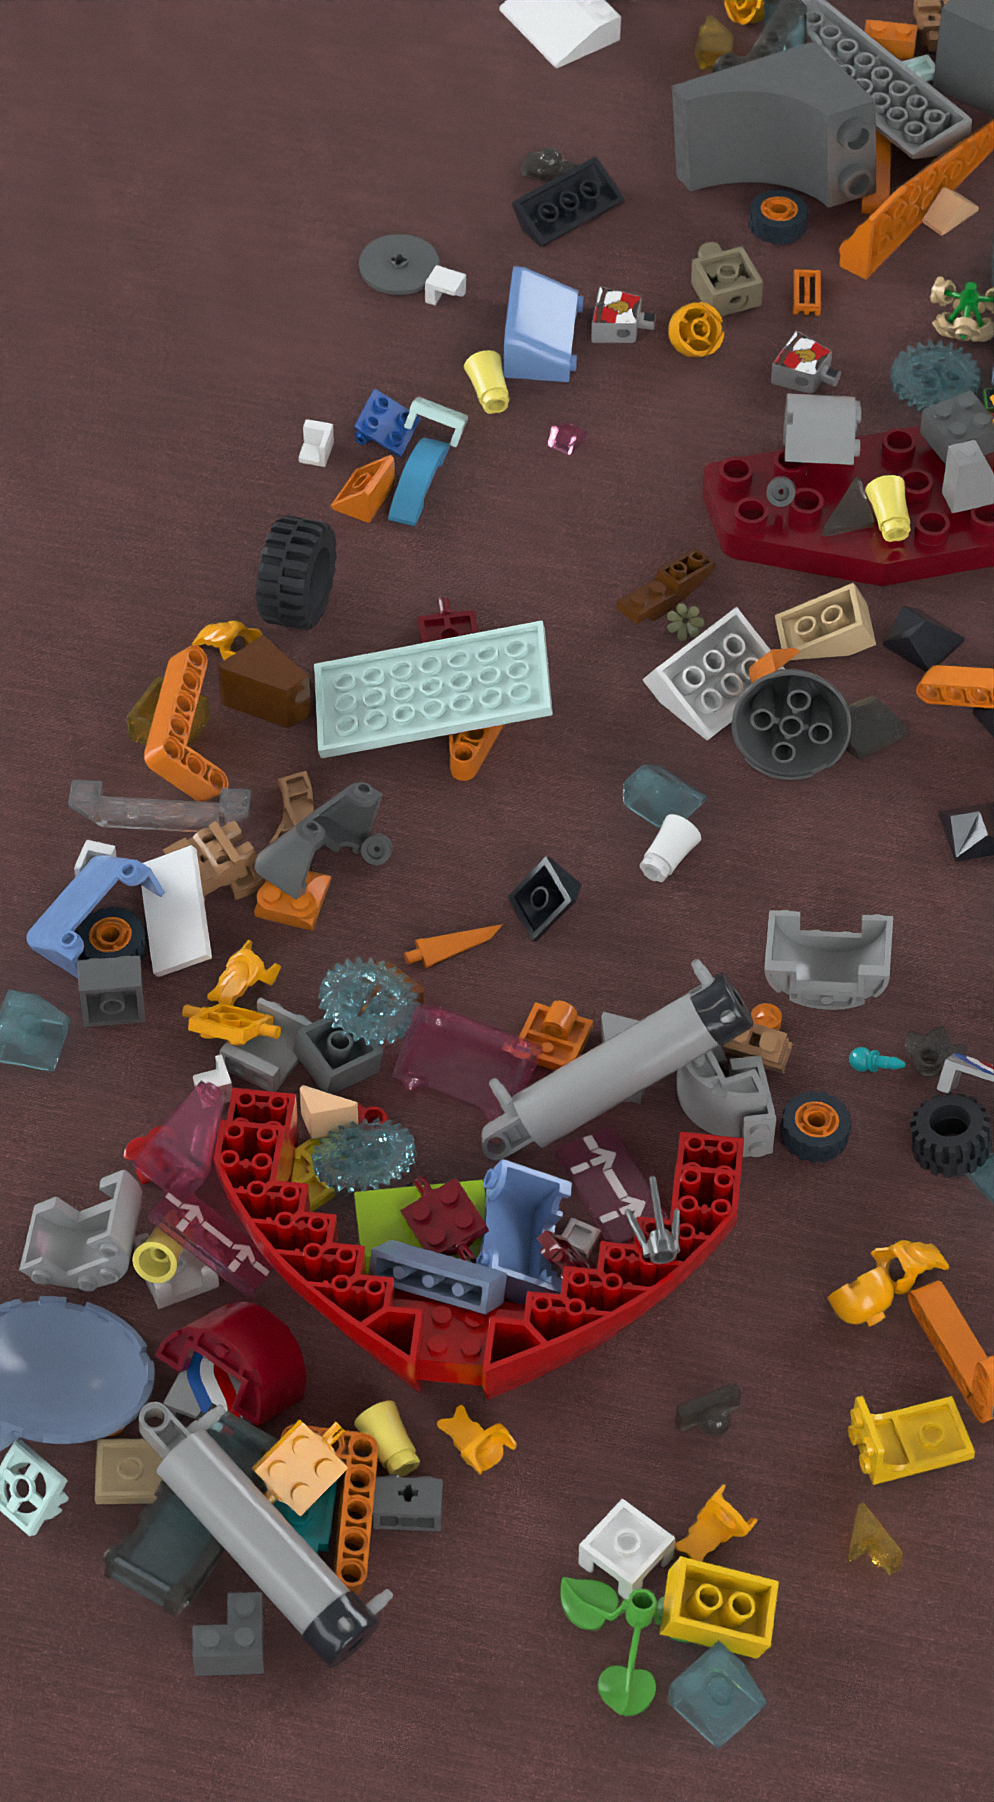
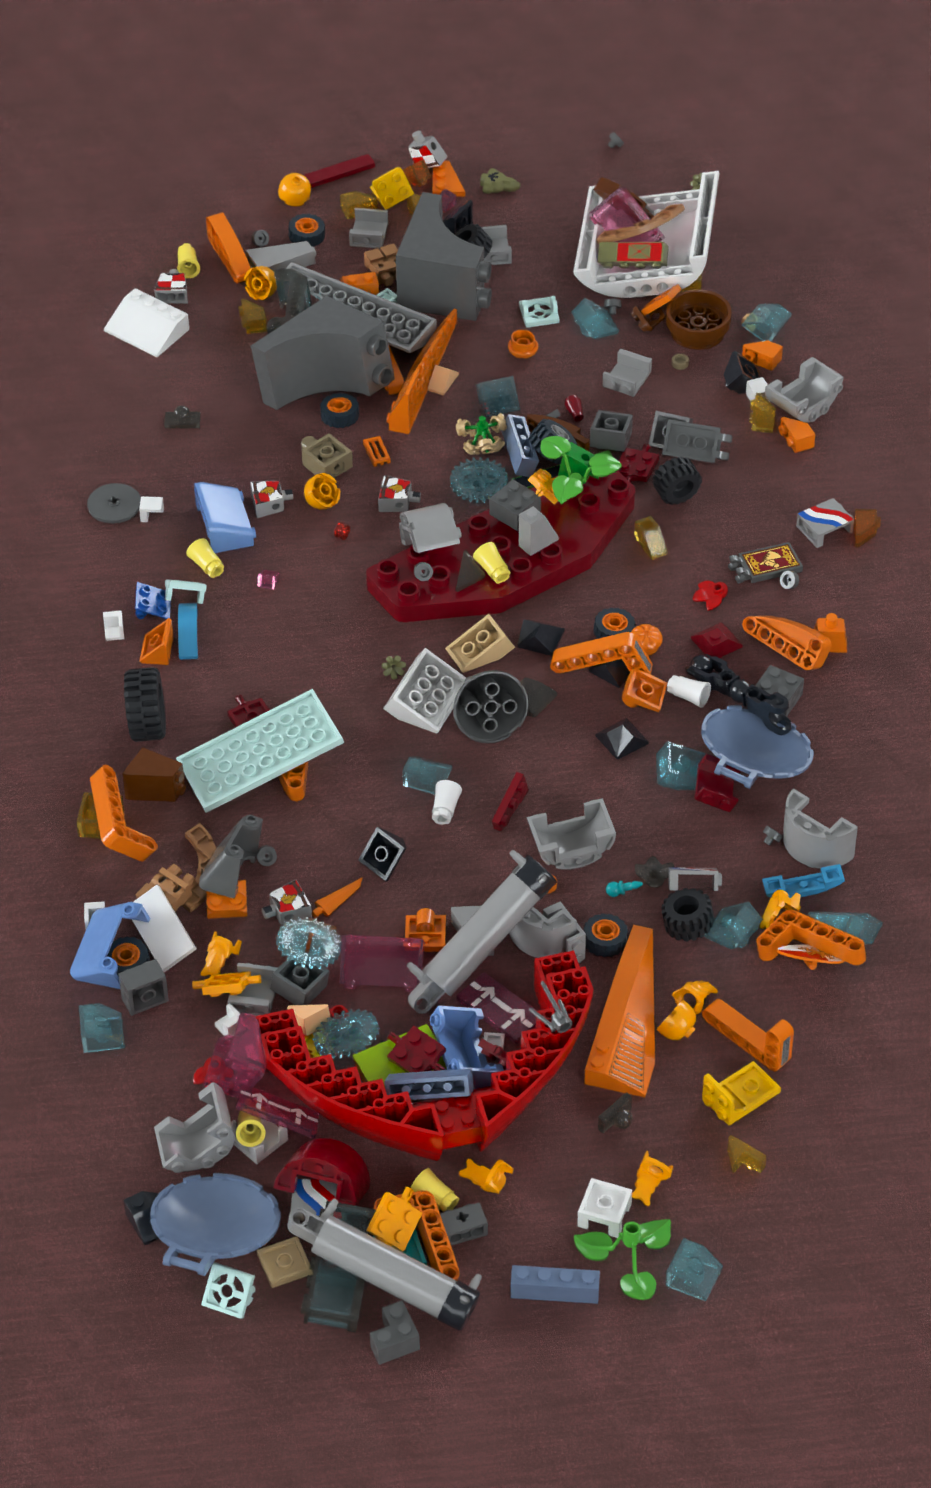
camera: 20 degrees left, 5 degrees down
(157, 814) = (119, 875): clear slope -> none
(223, 635) = (113, 757): light orange hair -> none
(374, 932) = (288, 903): none -> torso
(500, 1644) = (555, 1284): none -> sand blue brick
(567, 202) = (203, 437): black slope -> none
(669, 587) = (374, 649): reddish brown slope -> none
(702, 396) = (342, 531): none -> clear red bush
(719, 1604) = (674, 1217): yellow brick -> none
(762, 1041) = (557, 893): medium nougat hips -> none
(764, 877) = (510, 802): none -> dark red wing
(771, 662) = (460, 676): orange slope -> none
(774, 1296) = (625, 1038): none -> orange wedge

